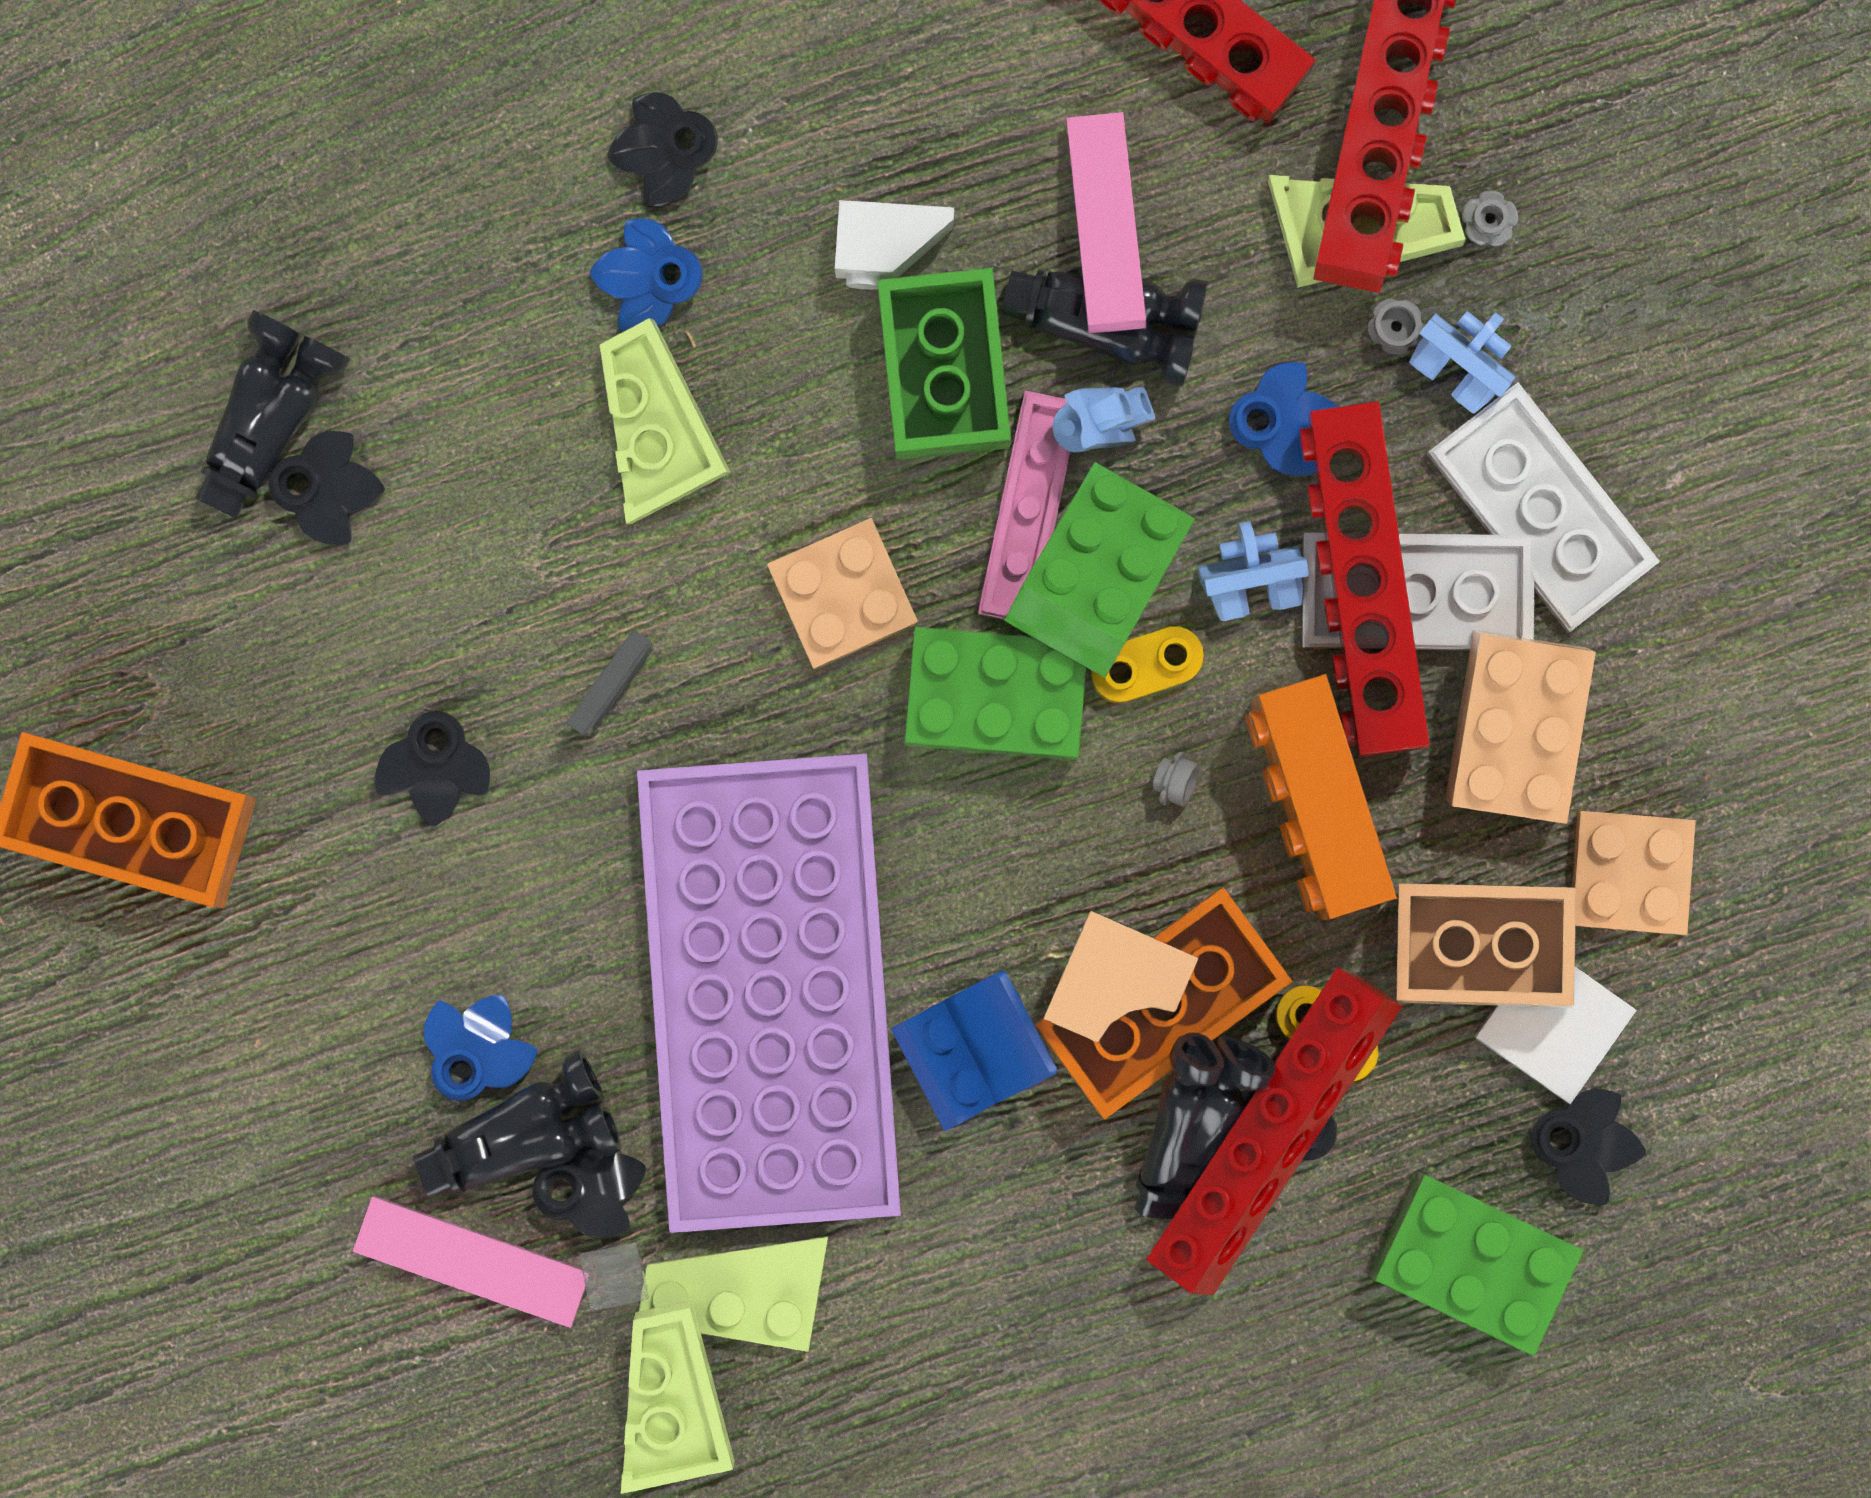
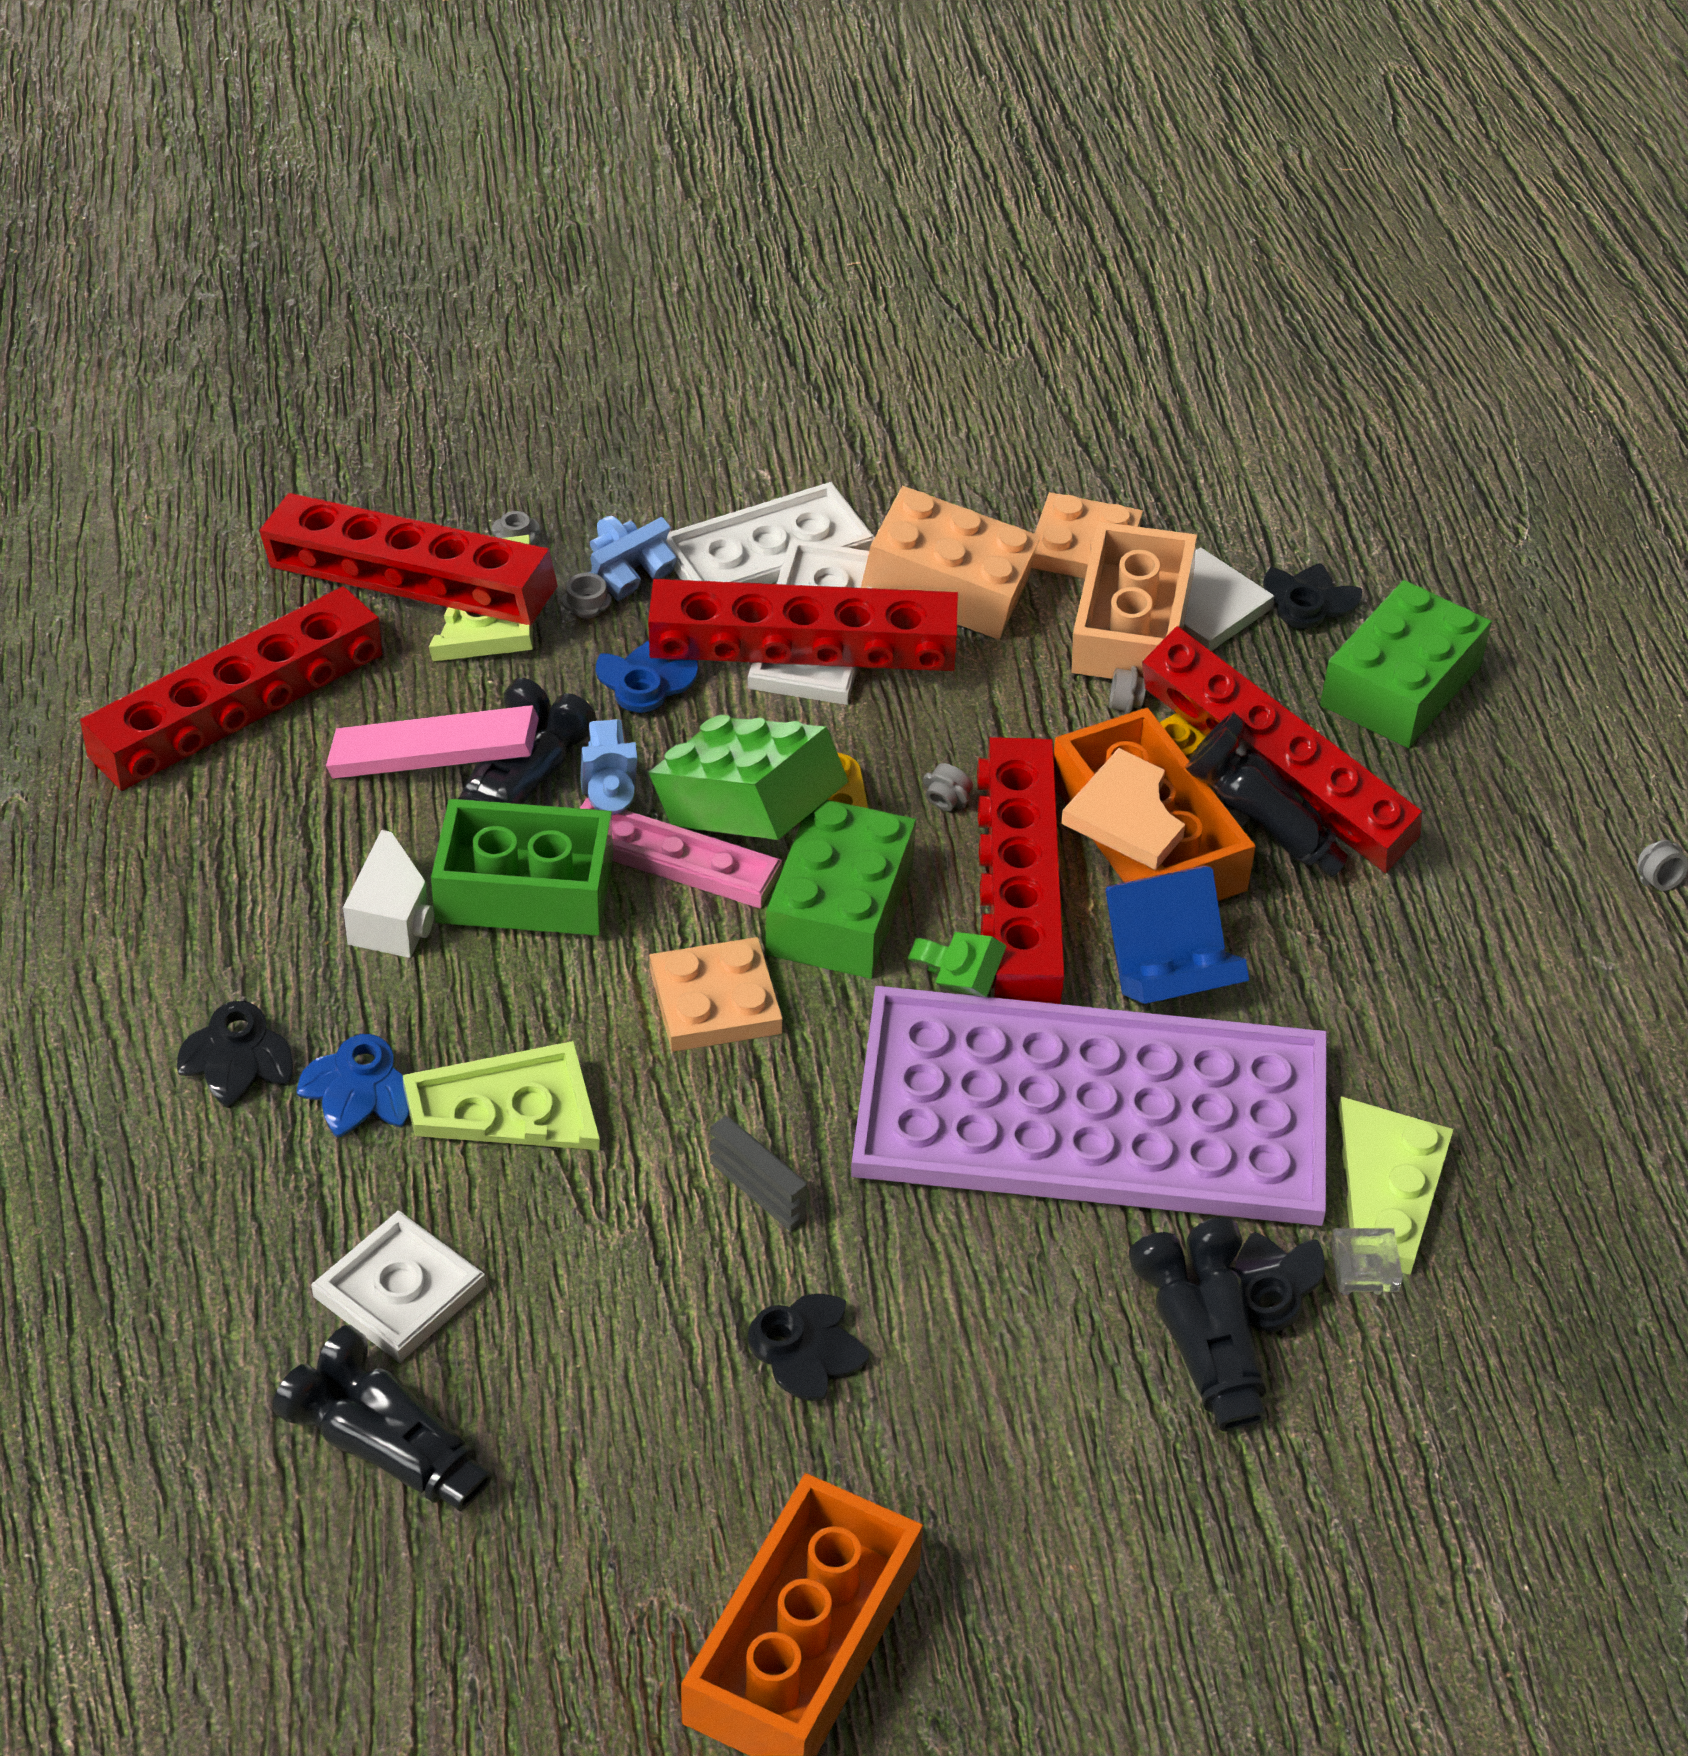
camera: 80 degrees left, 40 degrees down
(333, 489) = (486, 1388): black plate -> none
(428, 379) = (399, 1286): none -> white tile
(471, 1261) = (1336, 1401): bright pink tile -> none
(479, 1039) = (1103, 1357): blue plate -> none
(673, 1405) = (1502, 1236): yellowish green wing -> none
(907, 840) = (965, 965): none -> bright green plate
(1212, 867) = (1022, 867): none -> red brick
(1276, 569) = (776, 700): light blue hips -> none
(1321, 799) = (988, 678): orange brick -> none
(1372, 954) = (1126, 690): none -> light grey plate

